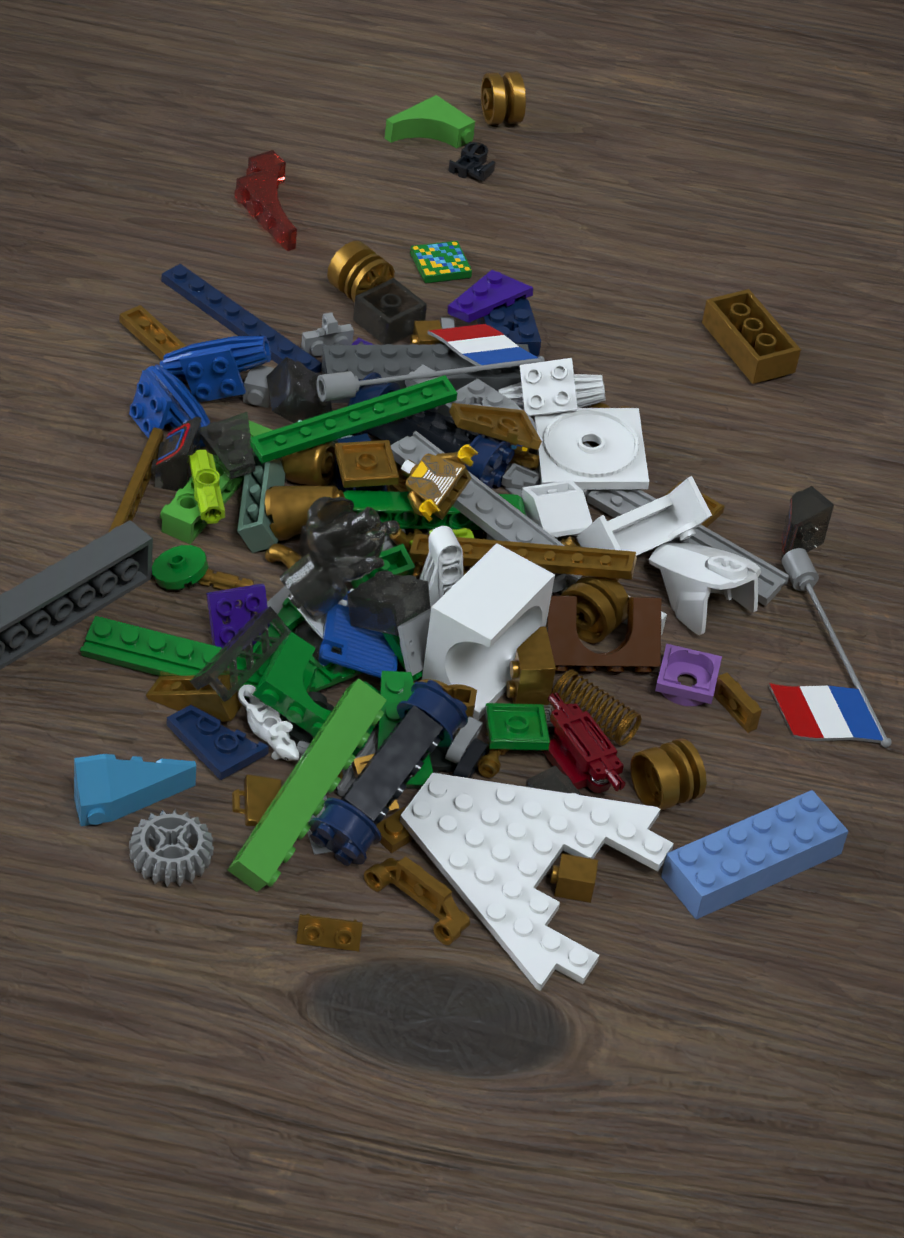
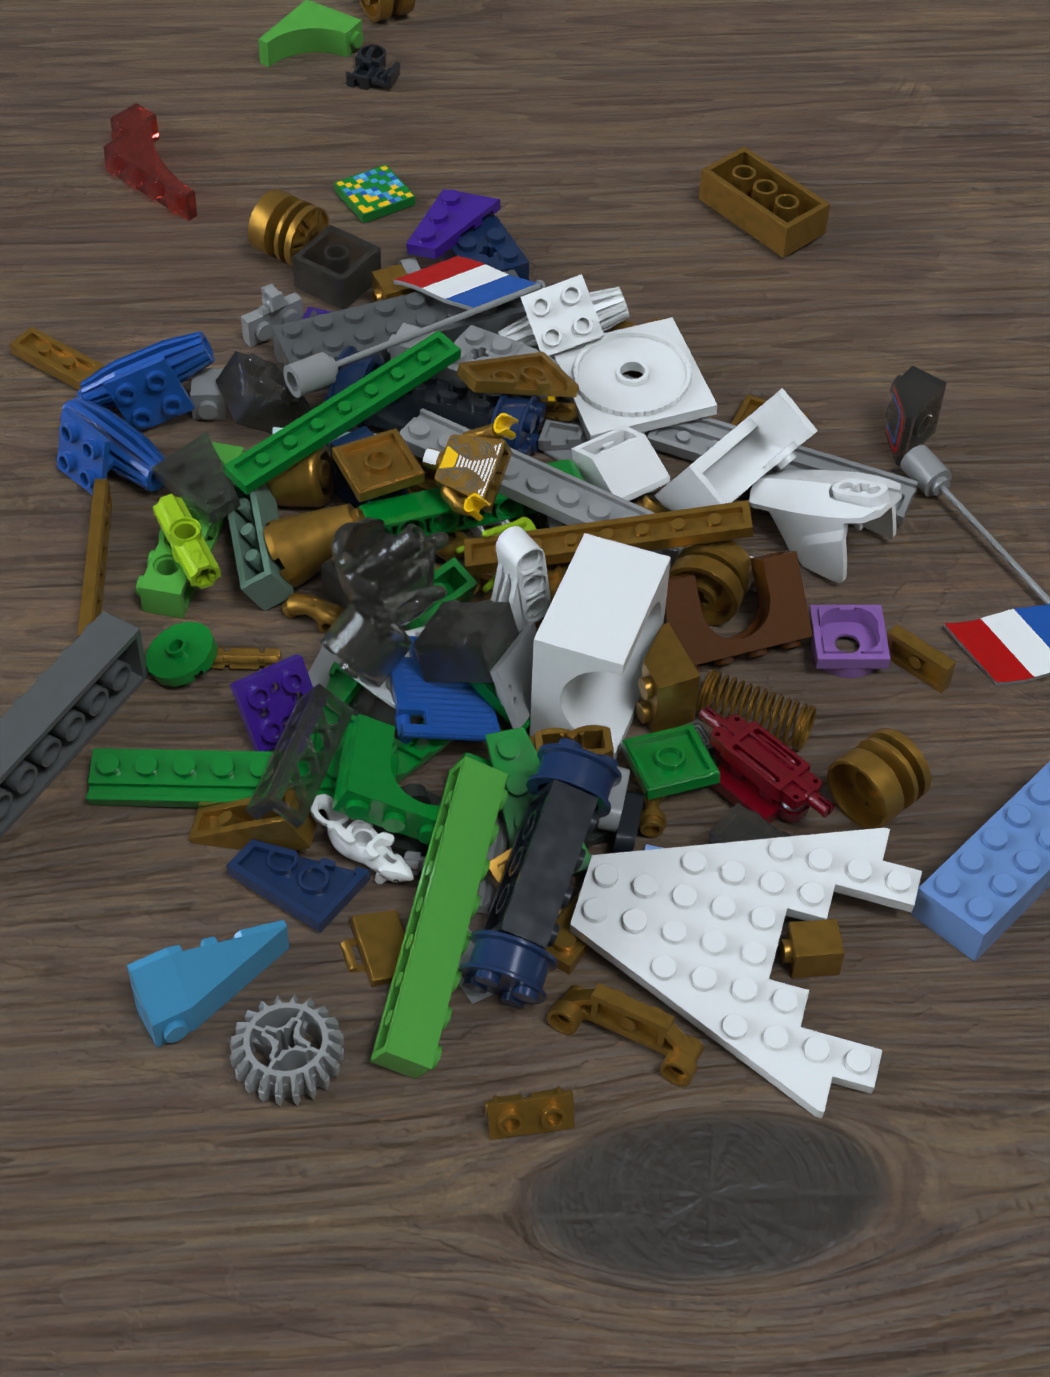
camera: 10 degrees left, 5 degrees up
(173, 467) = (133, 521): clear smoke slope -> none
(233, 315) = (149, 314): dark blue plate -> none

